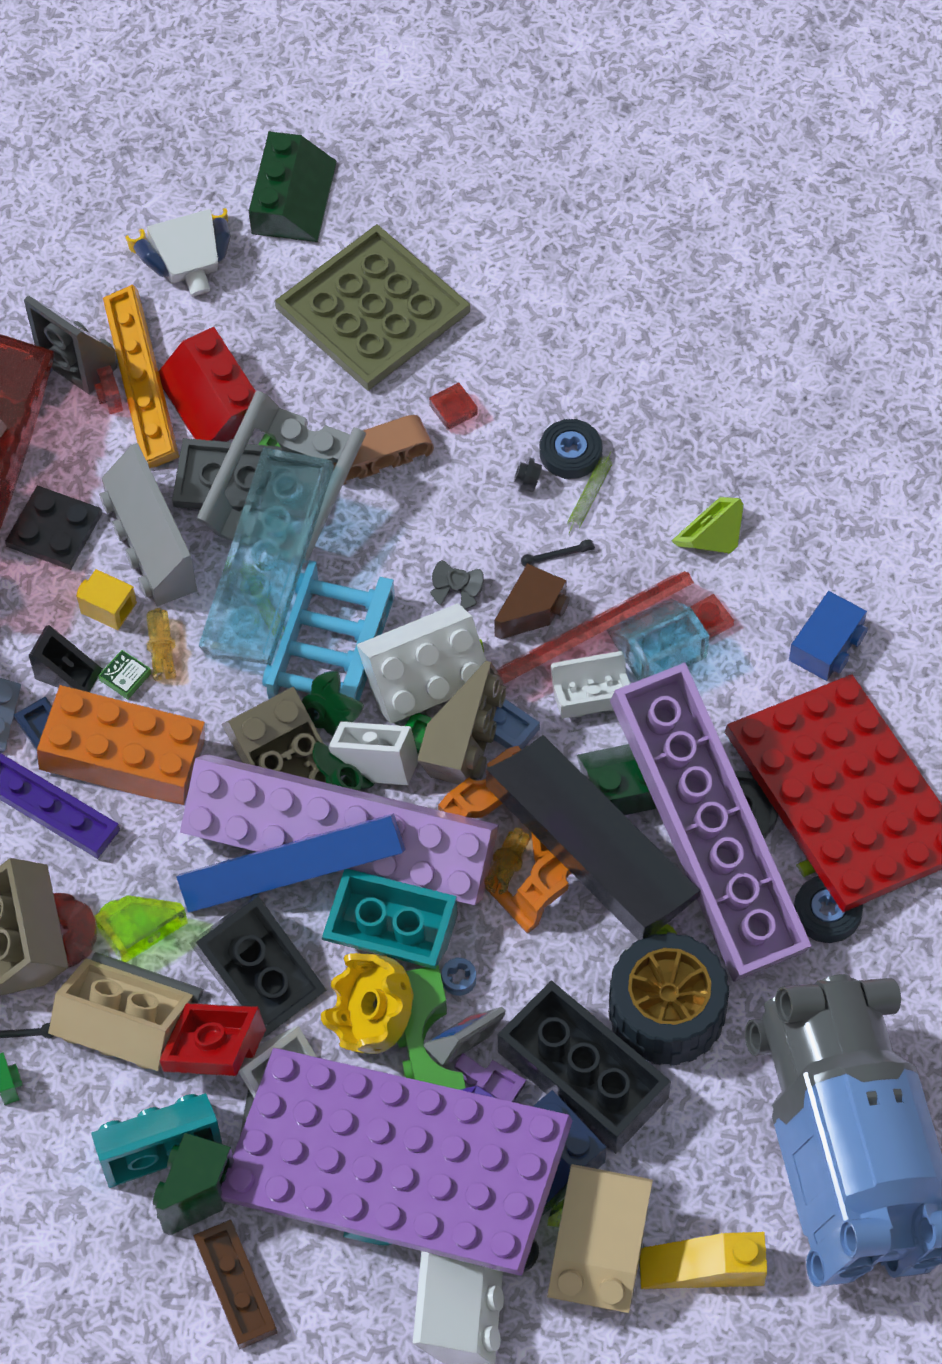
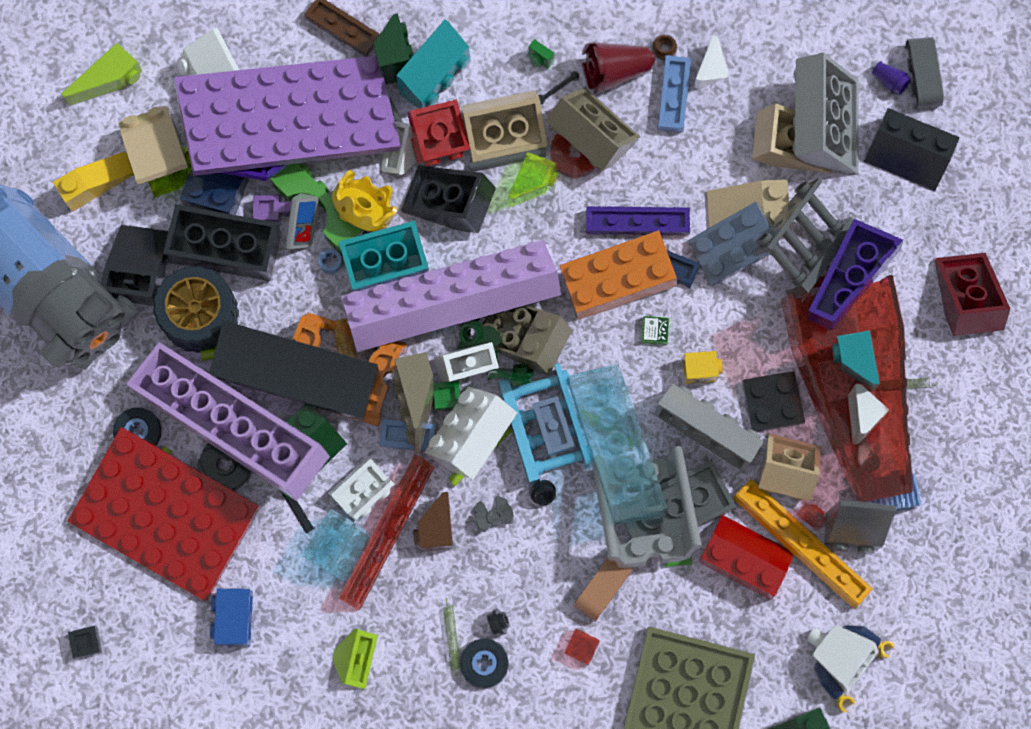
camera: 145 degrees right, 15 degrees up
(61, 662) = (693, 309): black slope -> none
(87, 446) = (790, 467): none -> tan slope
(160, 644) = (647, 361): clear yellow axle -> none
(291, 863) = (461, 254): blue tile -> none
(324, 619) = (553, 426): none -> sand blue plate
(384, 569) = (548, 492): none -> black plate
(582, 547) = (460, 563): black hinge -> none
(712, 1108) = (136, 264): none -> black slope
(713, 615) = (320, 589): clear red plate -> none

